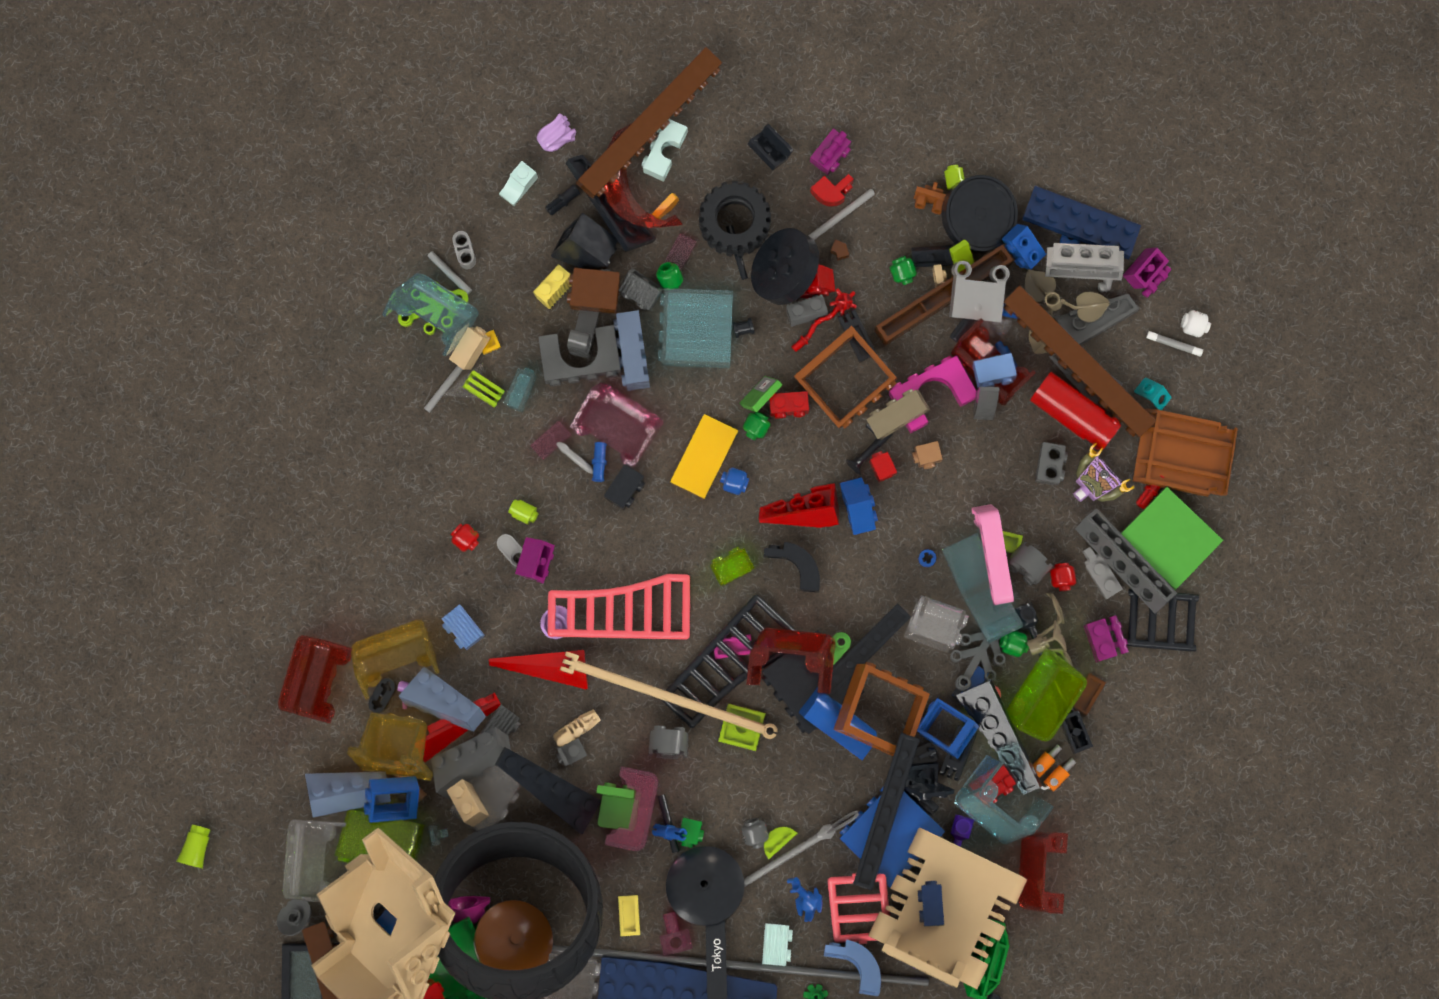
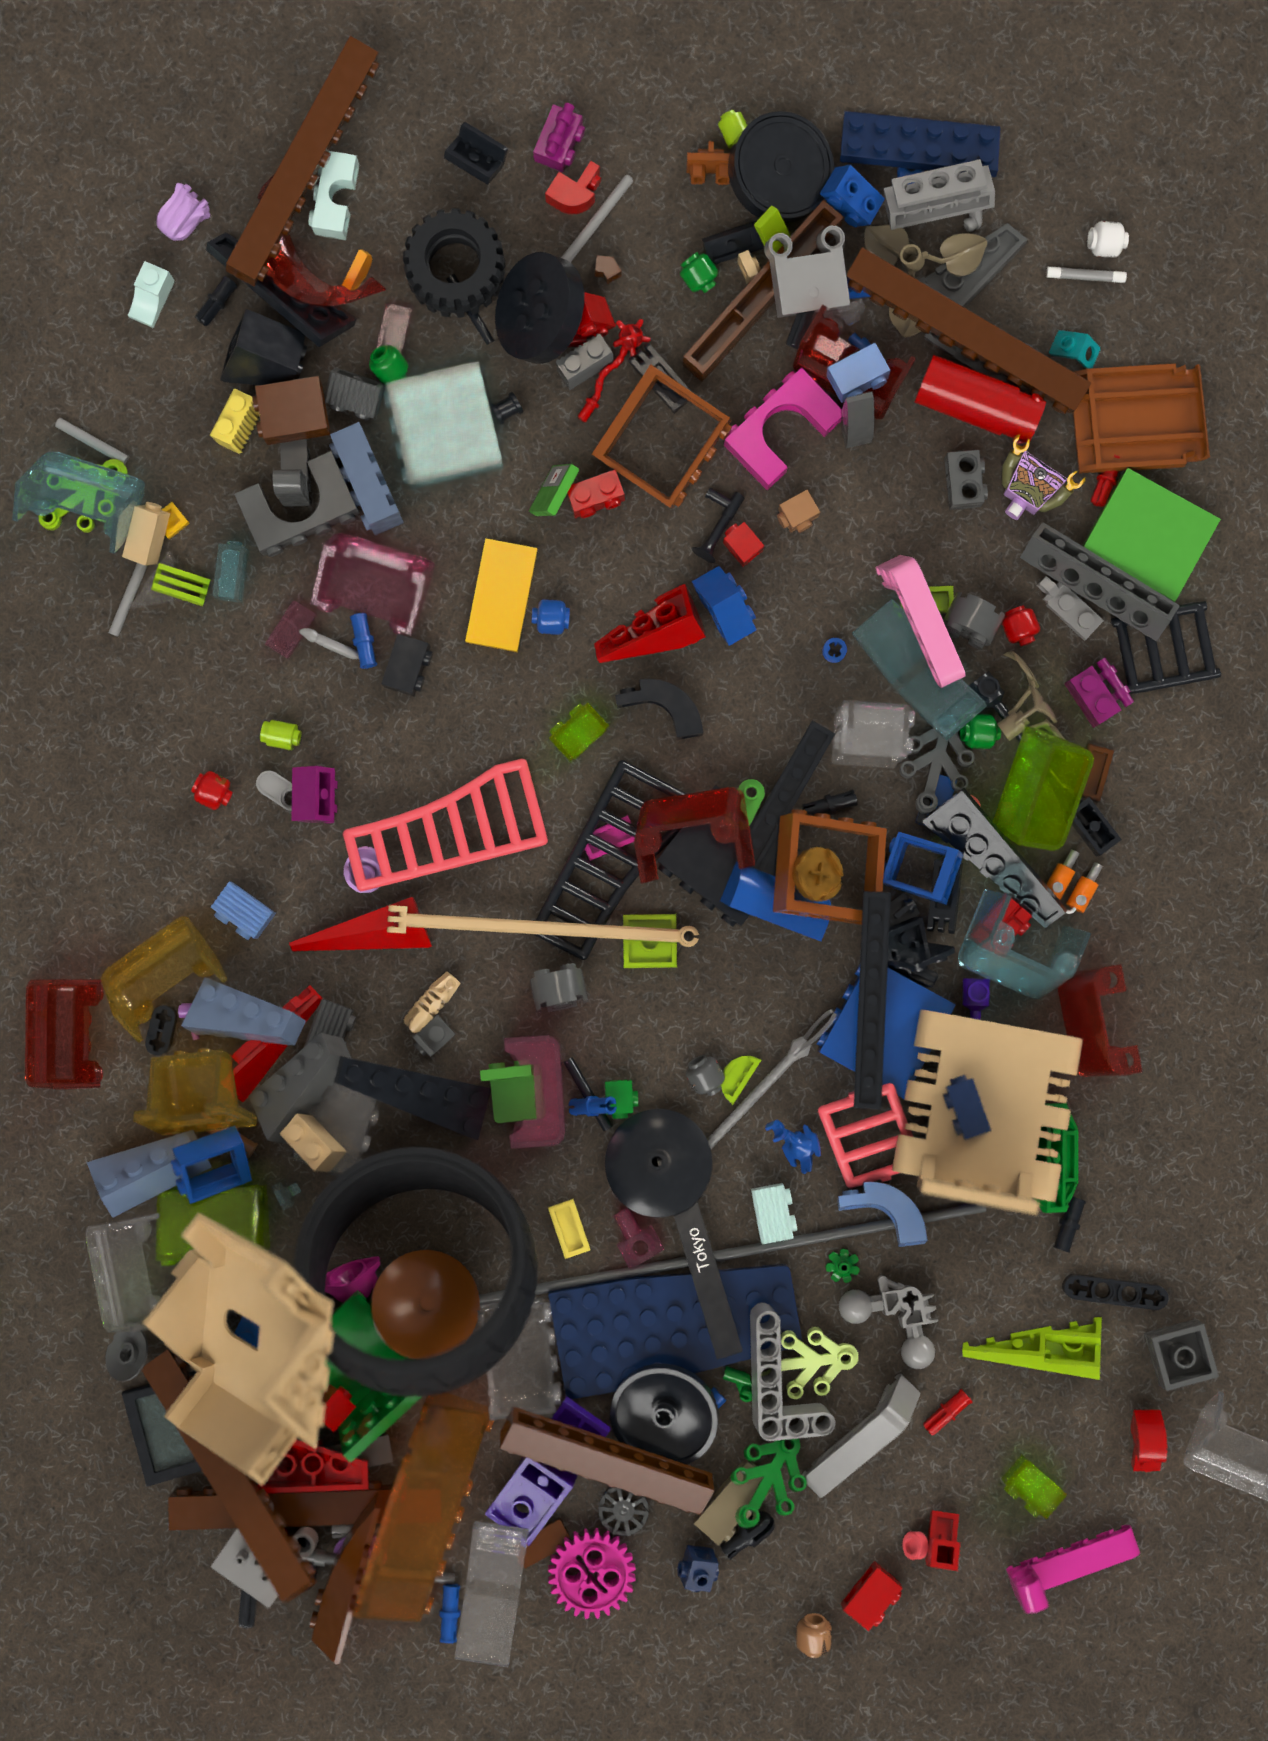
camera: 15 degrees left, 5 degrees up
(464, 250) = (101, 404): light grey beam -> none
(756, 425) = (560, 534): green head -> none
(871, 711) = (817, 874): none -> pearl gold tile
(895, 665) = (831, 804): none -> black pin
(897, 413) = (744, 466): dark tan brick -> none
(1146, 268) = (1026, 185): magenta brick -> none

